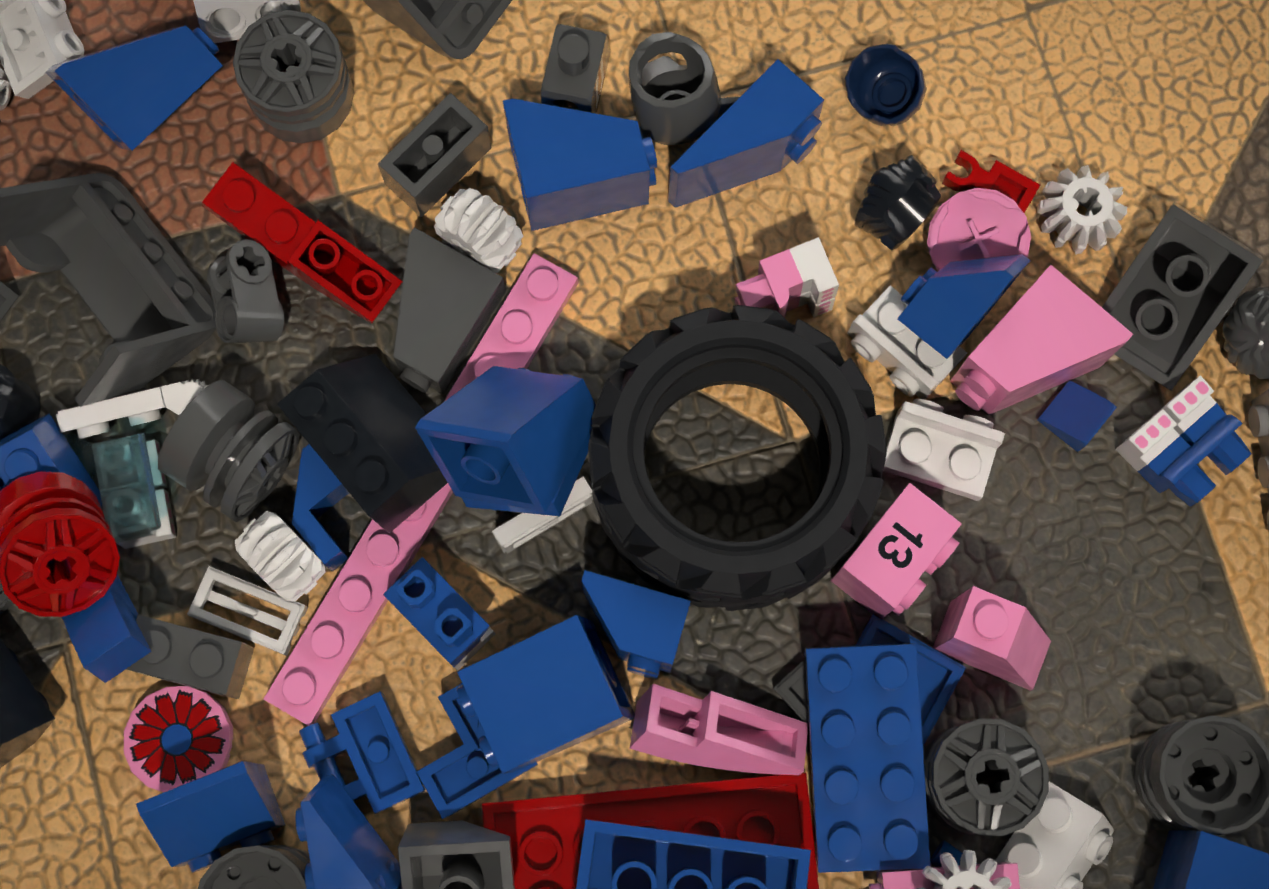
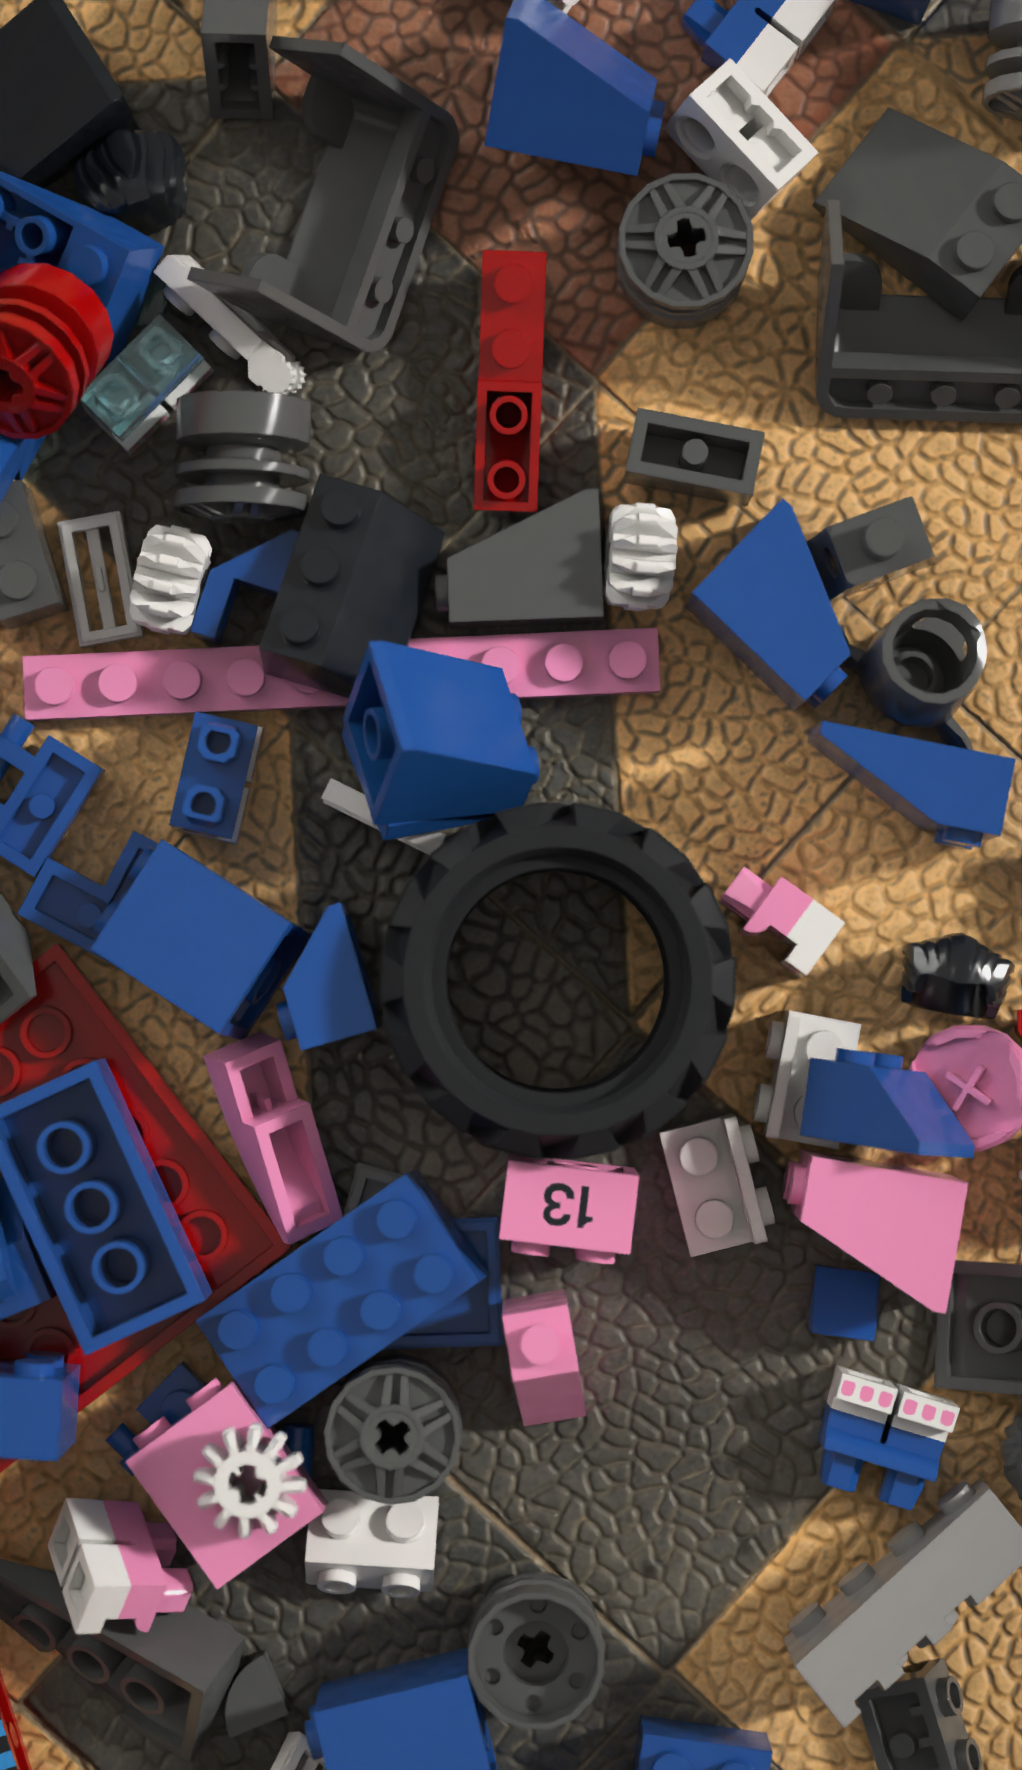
camera: 60 degrees right, 10 degrees up
(245, 300) = (414, 363): dark grey piece -> none

